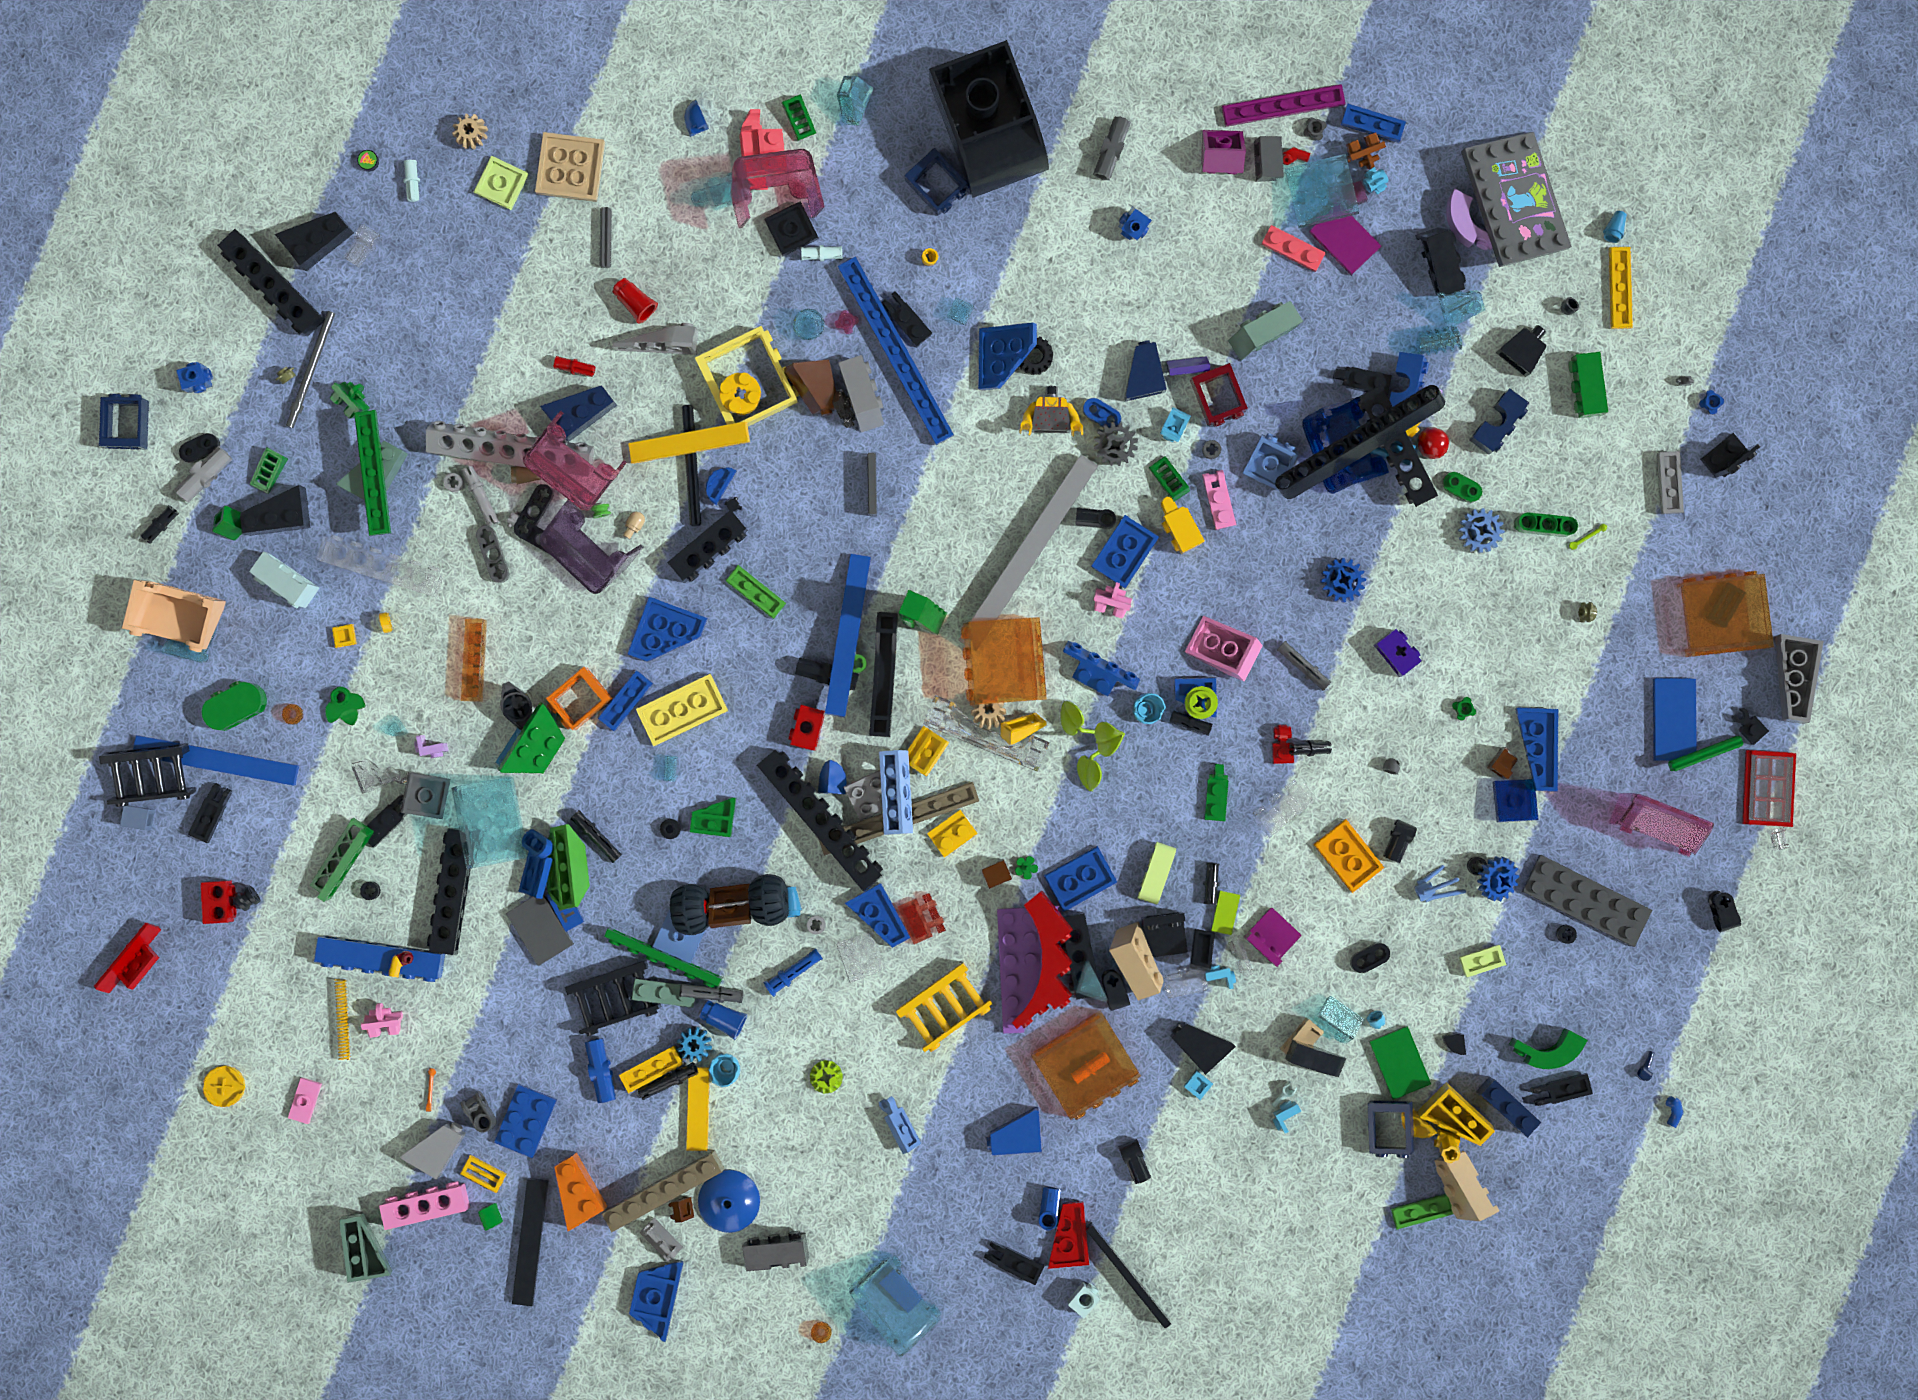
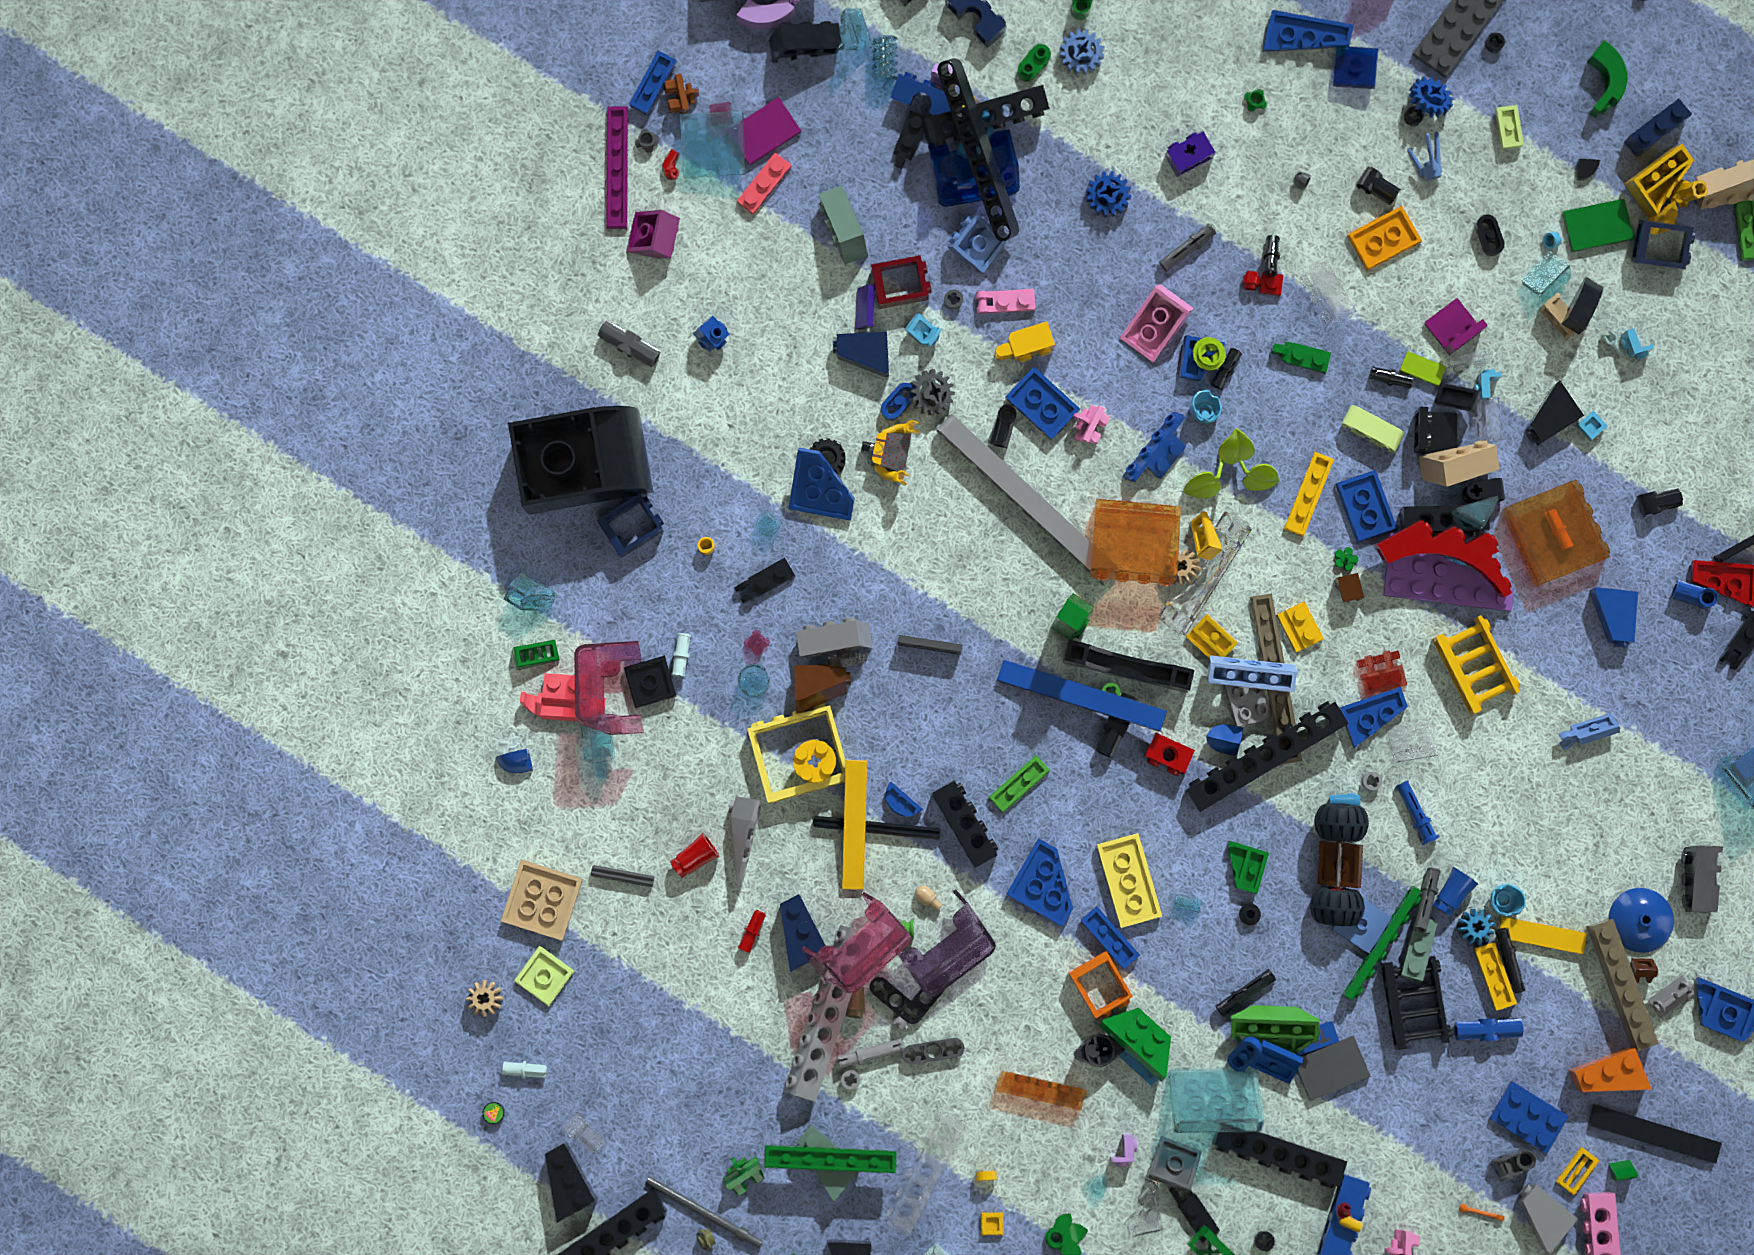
camera: 80 degrees left, 5 degrees down
(733, 505) = (925, 791): black piece -> none
(830, 1068) = (1523, 806): lime gear -> none
(895, 351) = (796, 597): blue plate -> none
(1082, 821) = (1308, 494): none -> yellow tile
(1180, 481) = (987, 332): green slope -> none
(1268, 158) = (669, 191): dark grey hinge -> none
(1375, 180) = (712, 90): medium azure gear -> none
(1433, 443) = (985, 82): red hair -> none
(1503, 763) = (1316, 73): reddish brown panel -> none
(1564, 1089) = (1648, 72): black hinge -> none

